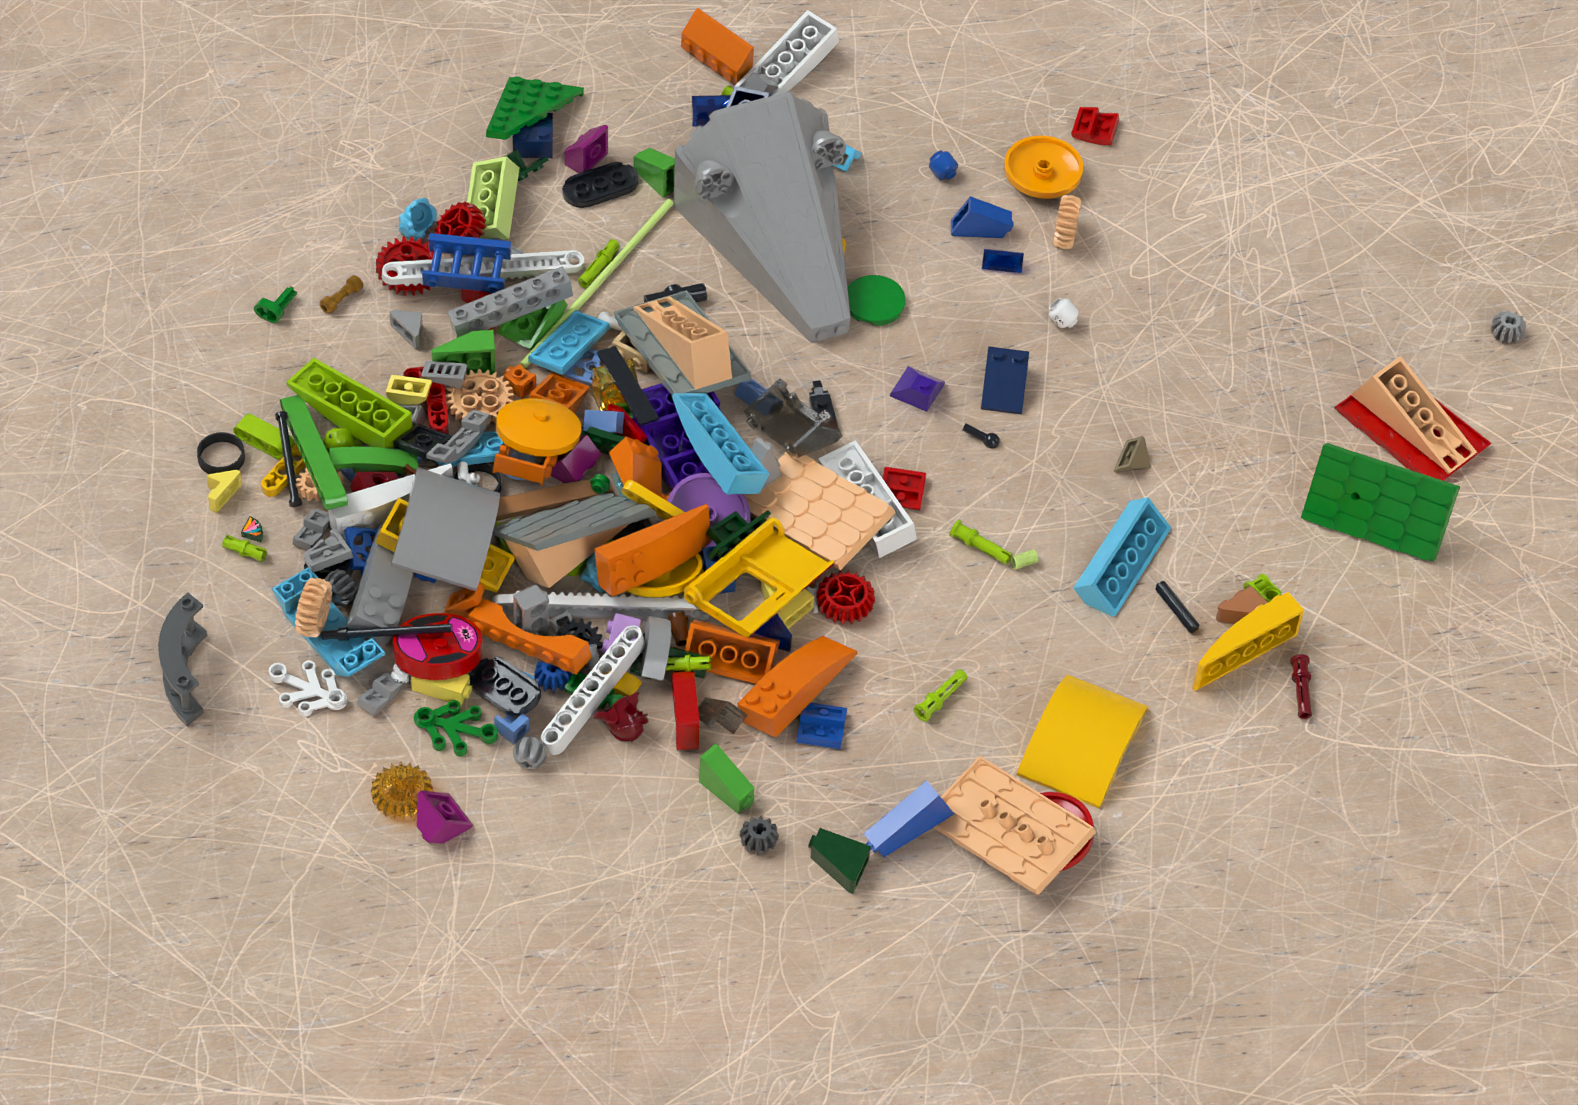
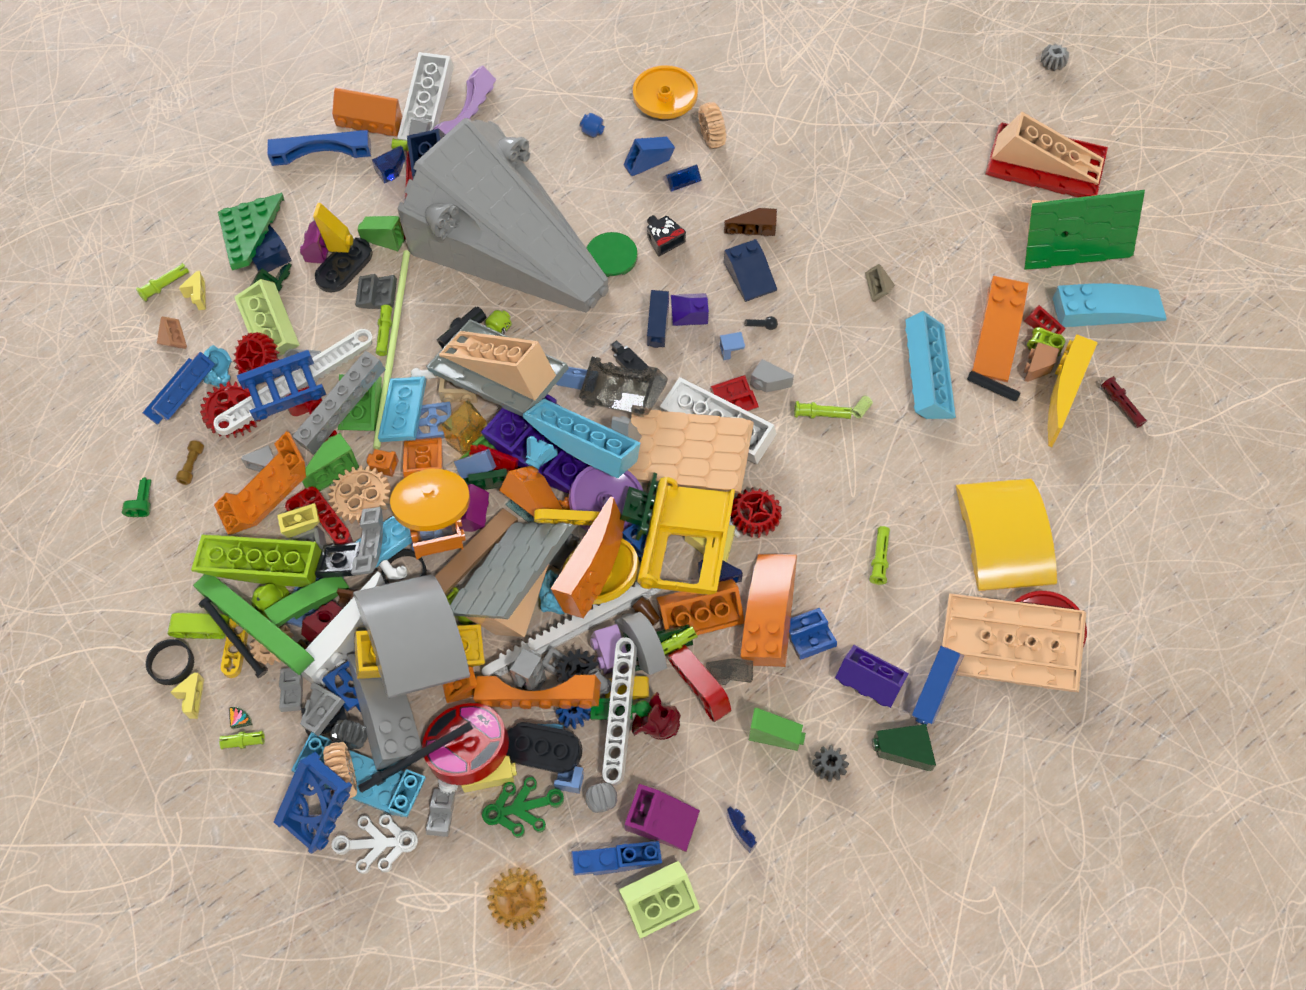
camera: 25 degrees left, 10 degrees up
(176, 643) = (236, 879): dark grey fence -> none
(257, 617) = (312, 771): none -> blue fence
(370, 221) = (178, 388): none -> blue fence
(395, 170) = (171, 333): none -> nougat slope
(395, 350) = (264, 490): none -> orange slope
(406, 119) = (155, 286): none -> lime pin
(440, 817) = (565, 904): magenta slope -> none
(442, 141) = (195, 288): none -> light yellow slope
(456, 372) = (329, 493): light grey slope -> none
(509, 808) = (616, 859): none -> blue slope
(525, 857) = (659, 899): none -> yellowish green slope
(571, 794) = (661, 818): none -> magenta slope
(600, 483) = (505, 519): green plate -> none
(607, 148) = (333, 231): none -> yellow slope
(615, 224) = (376, 291): none -> dark grey slope
(616, 48) = (286, 150): none -> blue arch
(627, 385) = (479, 425): black piece -> none
(638, 840) = (737, 823): none -> clear blue slope
(669, 438) = (539, 452): none -> medium azure rock
(716, 308) = (499, 321): none -> lime head
(850, 72) = (478, 85): none -> lavender arch
(852, 786) = (871, 676): none -> dark purple slope
(875, 379) = (658, 318): none -> dark blue slope
(932, 436) = (730, 343): none -> medium blue panel
(942, 306) = (664, 234): none -> black torso
(950, 487) = (770, 377): none -> light grey slope
(1043, 337) = (756, 222): none -> reddish brown slope
(1063, 313) = (755, 196): white head -> none
(1095, 126) = (676, 45): red slope -> none
(1226, 556) = (1000, 328): none -> orange slope
(1279, 561) = (1043, 315): none -> red slope
(1361, 591) = (1107, 304): none -> medium azure slope

